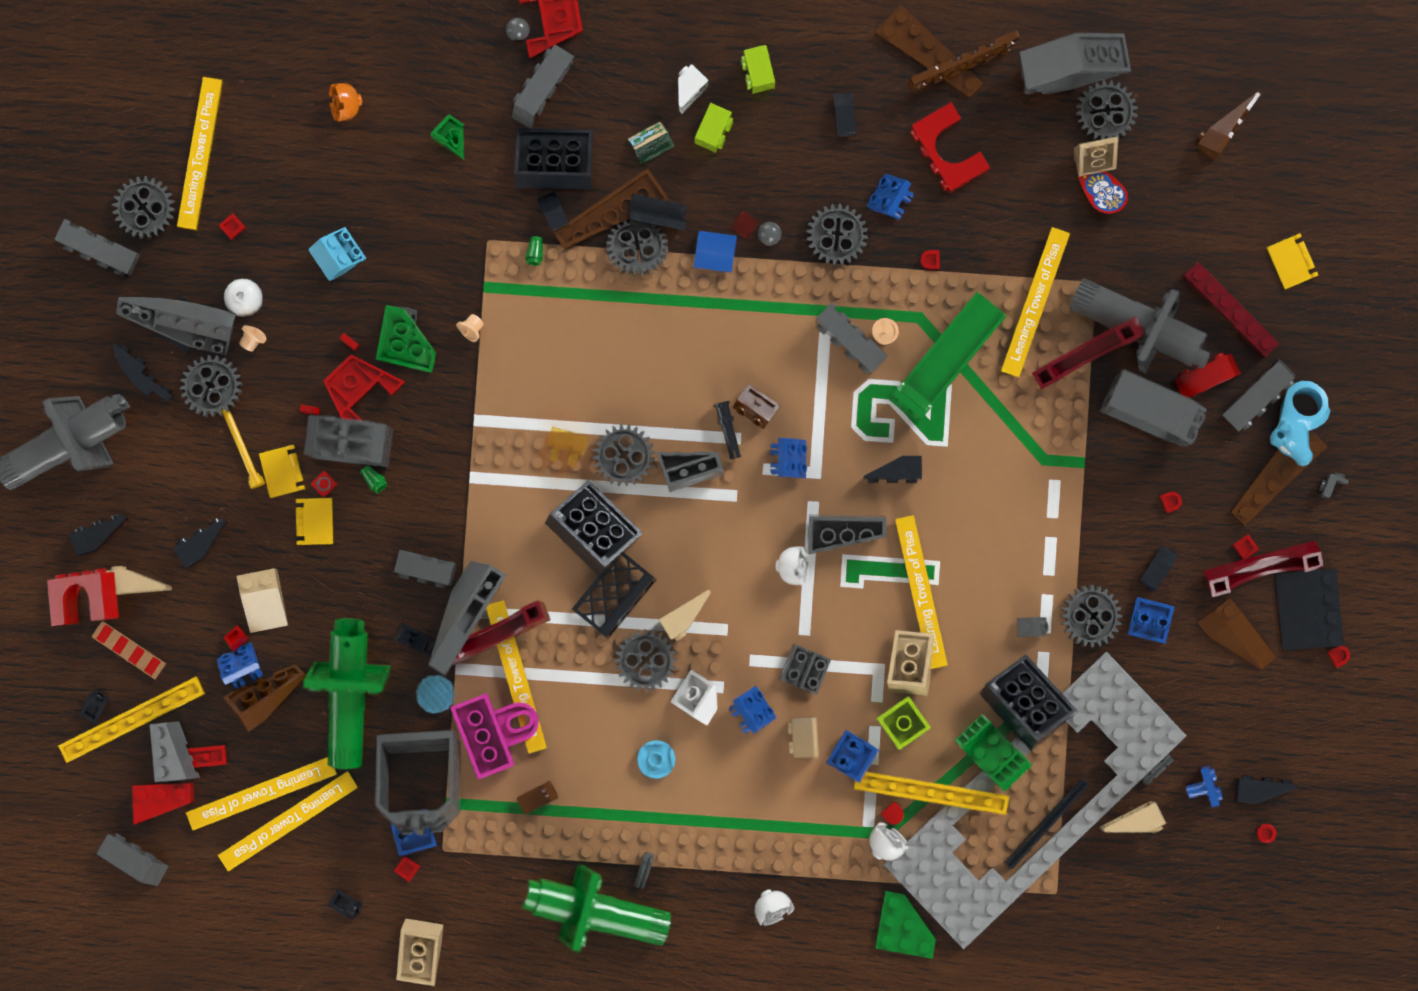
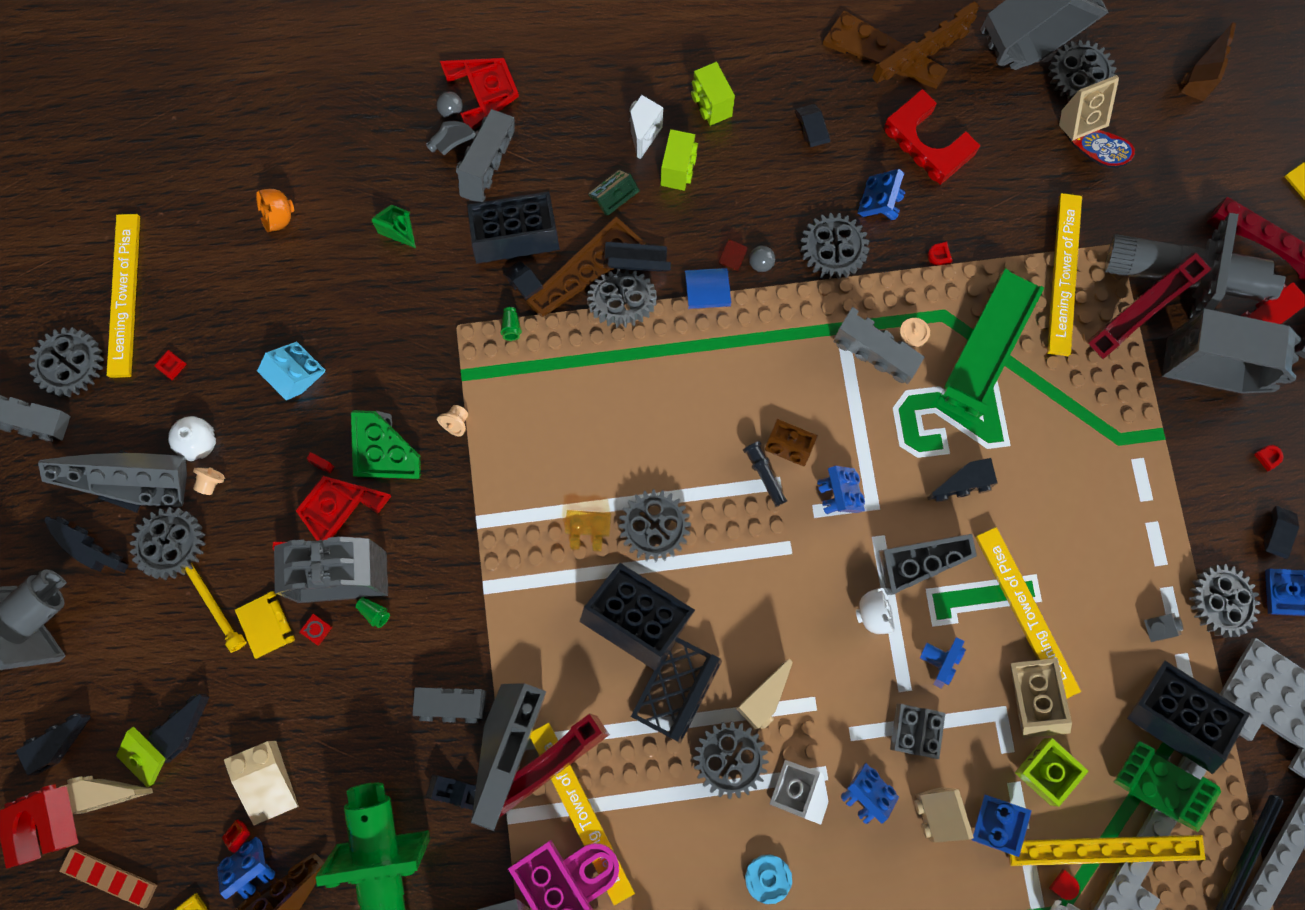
camera: 15 degrees left, 10 degrees down
(168, 560) = (140, 757): none -> lime plate
(315, 521) = (311, 675): yellow piece -> none
(435, 694) = (488, 854): tile -> none
(512, 62) = (450, 135): none -> dark grey arm
(689, 468) = (733, 524): dark grey wedge -> none
(838, 617) = (944, 660): none -> blue plate

